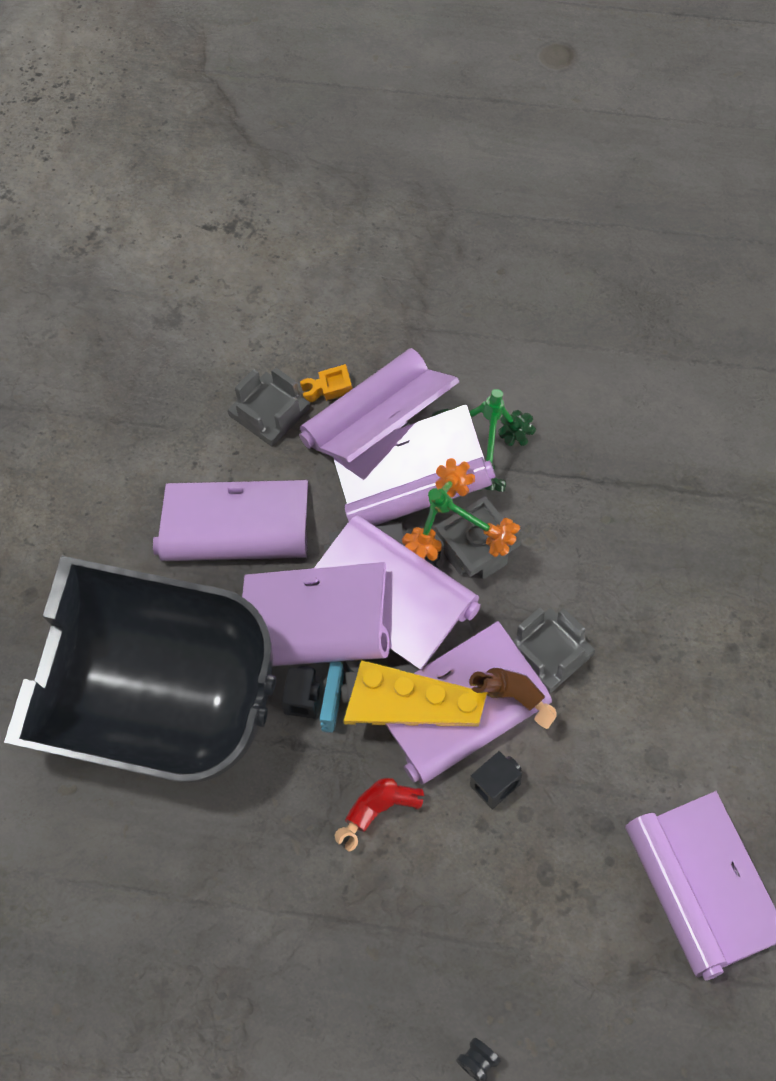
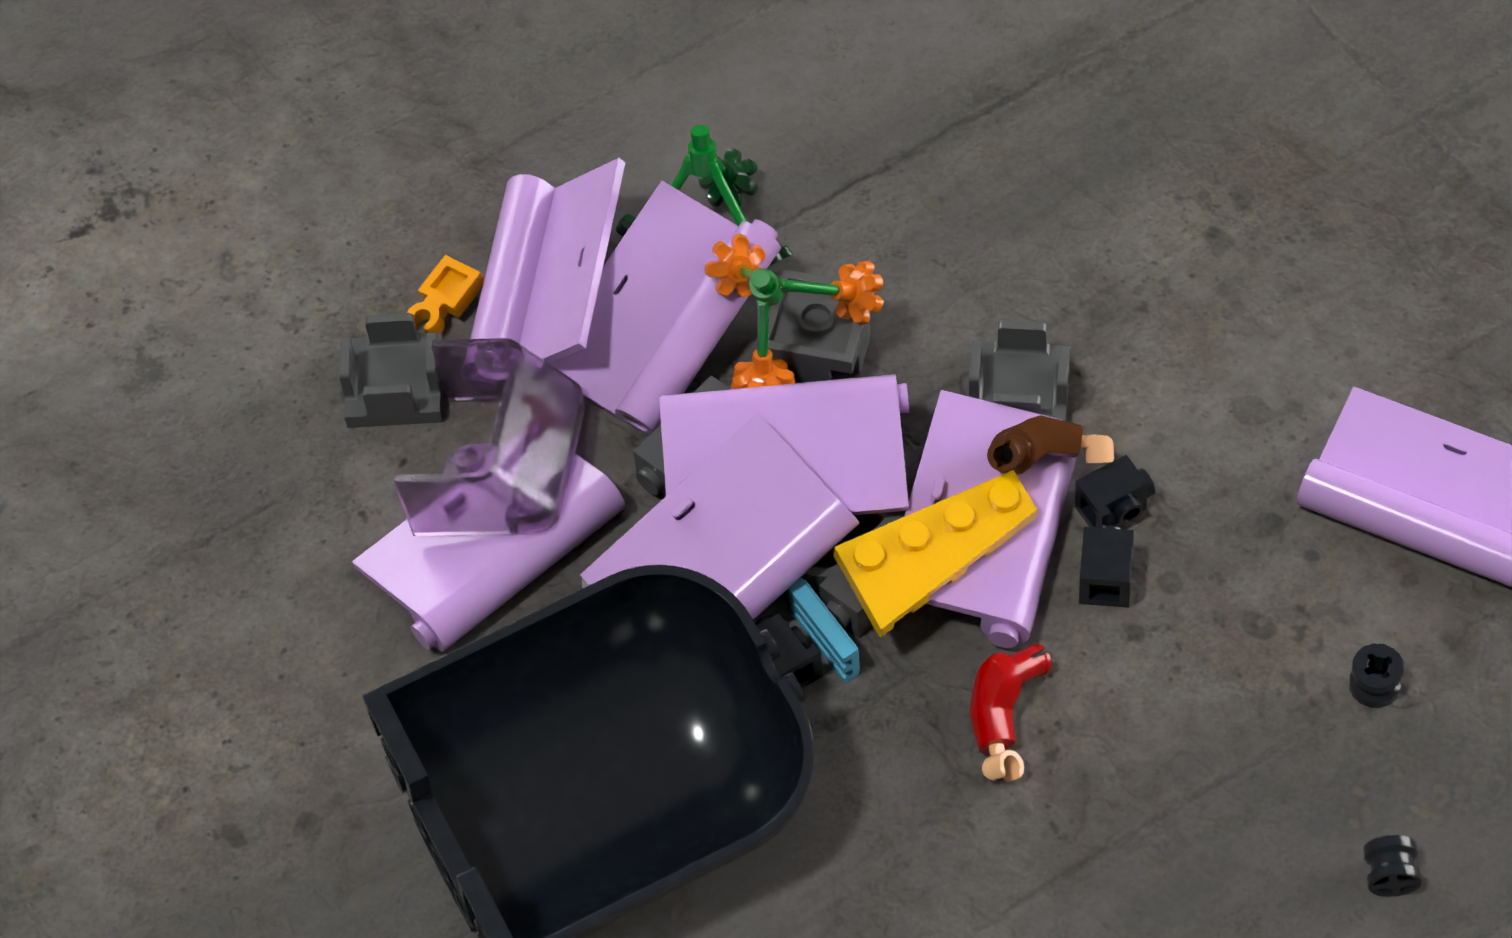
camera: 40 degrees left, 5 degrees down
(278, 492) = (525, 470): none -> clear purple windscreen
(536, 746) = (1113, 493): none -> black brick
(571, 961) = (1373, 688): none -> black wheel

